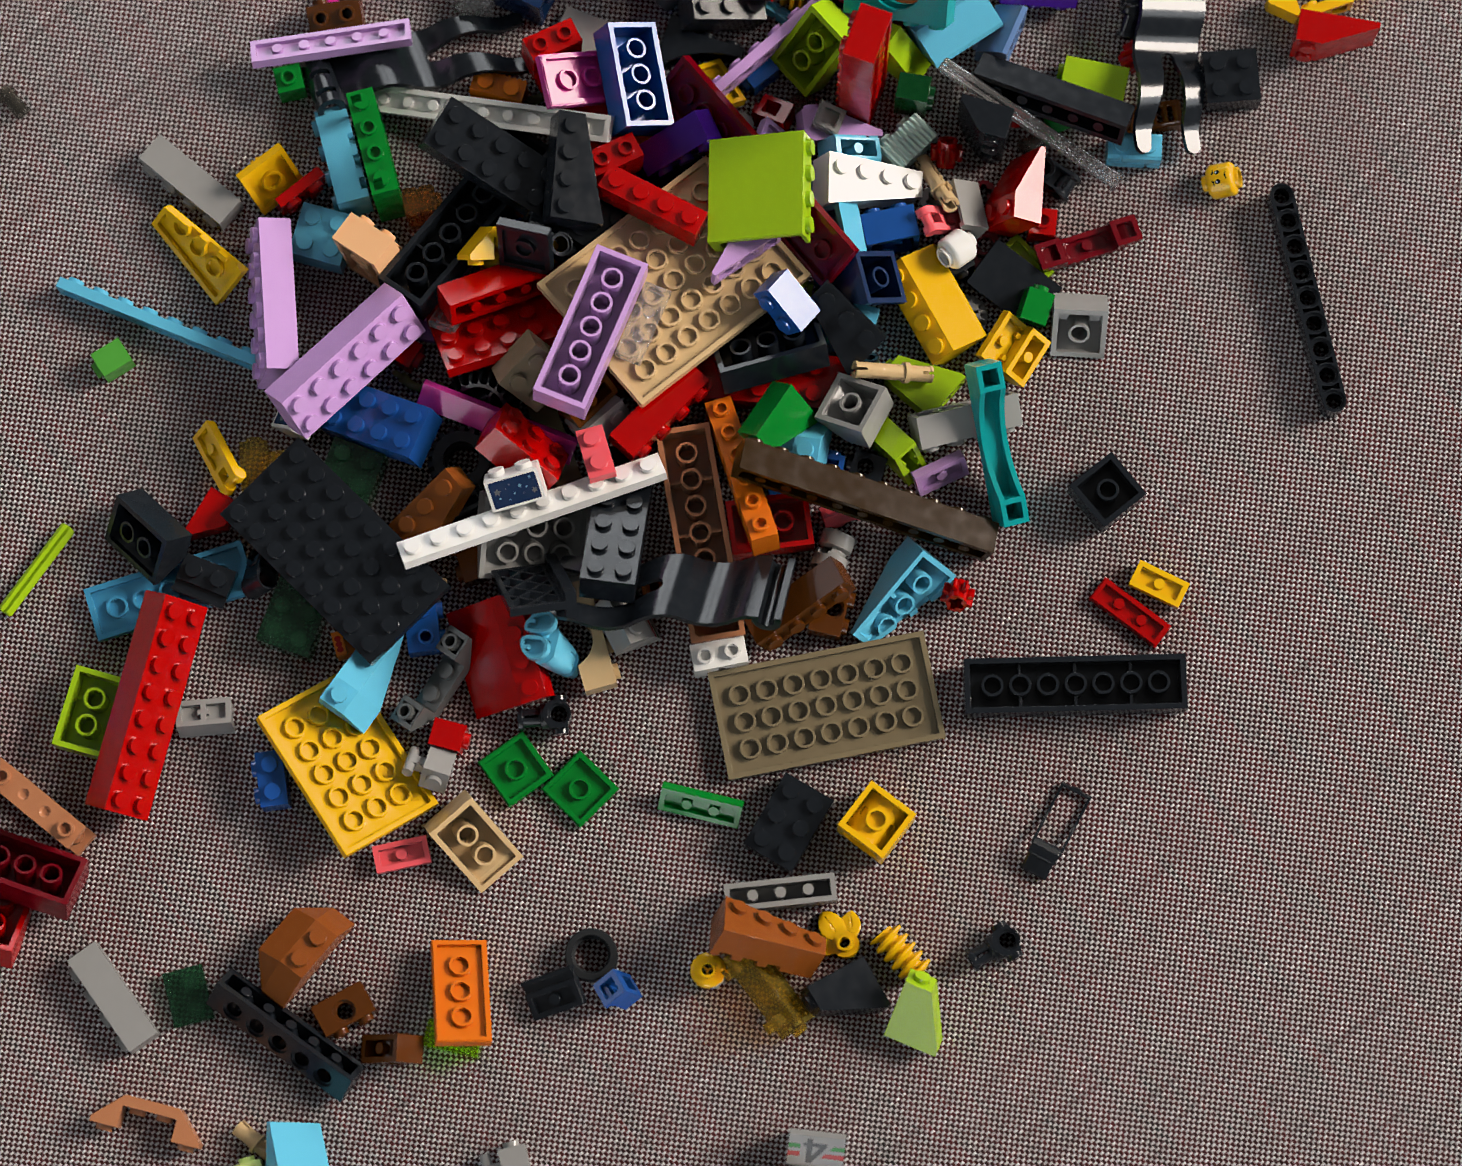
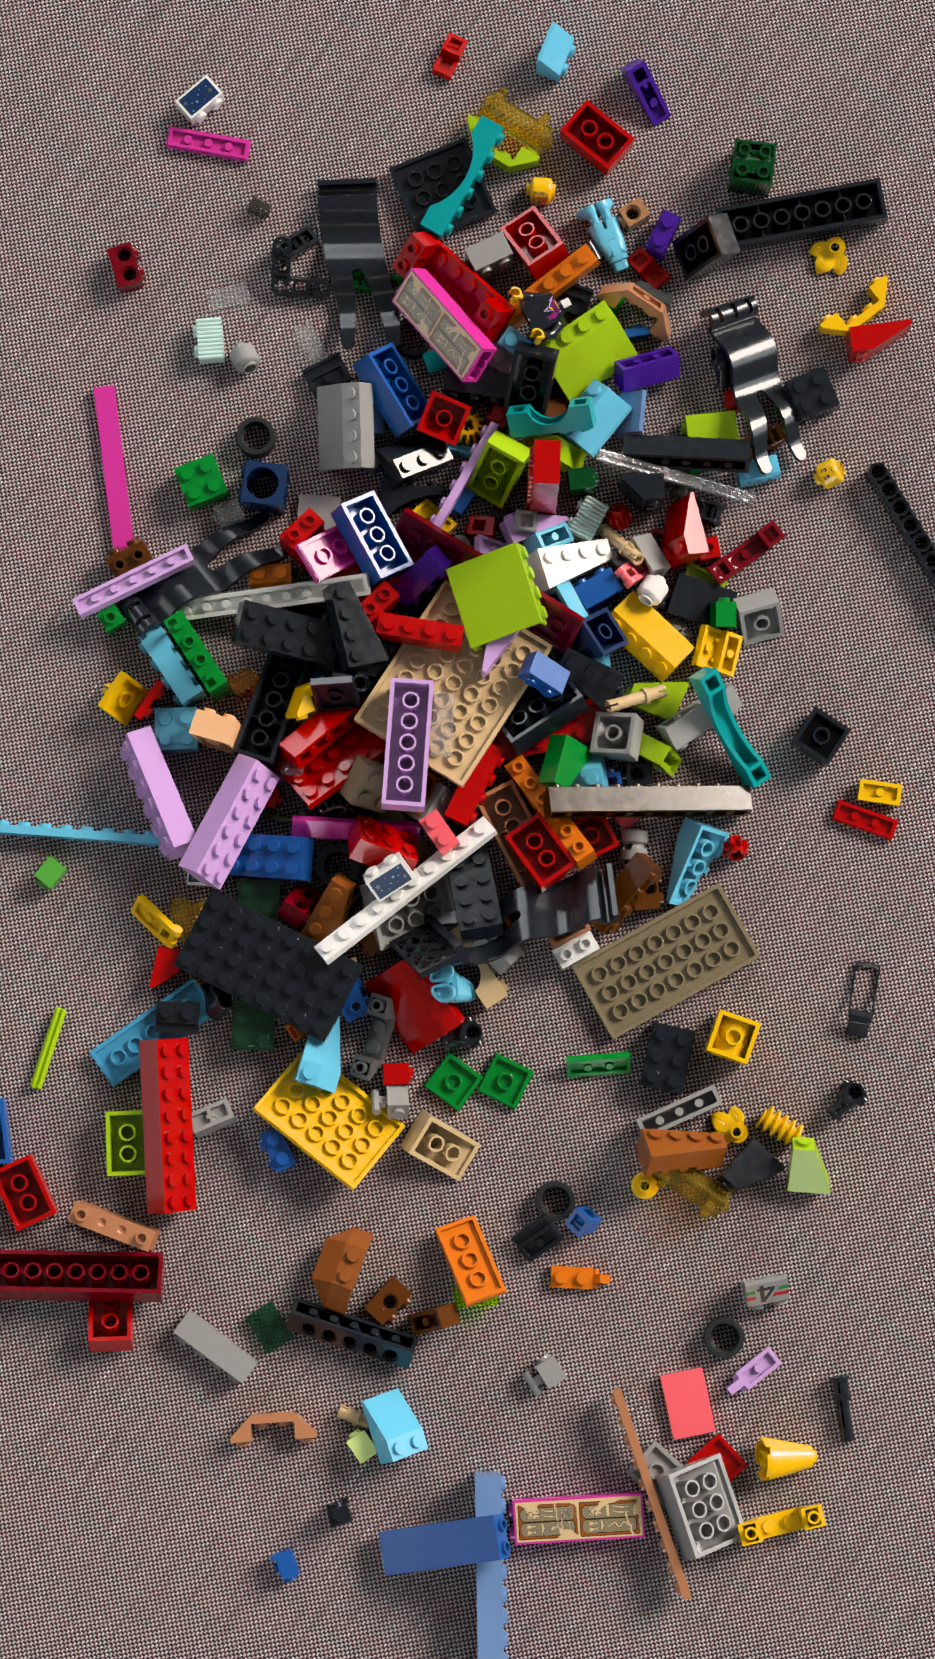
camera: 20 degrees left, 5 degrees up
(147, 535) = (123, 997): black slope -> none
(191, 183) = (63, 719): light grey brick -> none
(203, 257) = (97, 776): yellow wing -> none
(396, 491) = (299, 905): none -> dark red brick
(401, 854) = (391, 1172): coral plate -> none
(587, 1059) = (577, 1277): none -> orange hinge
(713, 517) = (540, 852): none -> red brick
(940, 473) = (692, 760): lavender plate -> none
(1074, 686) = (843, 888): black brick -> none

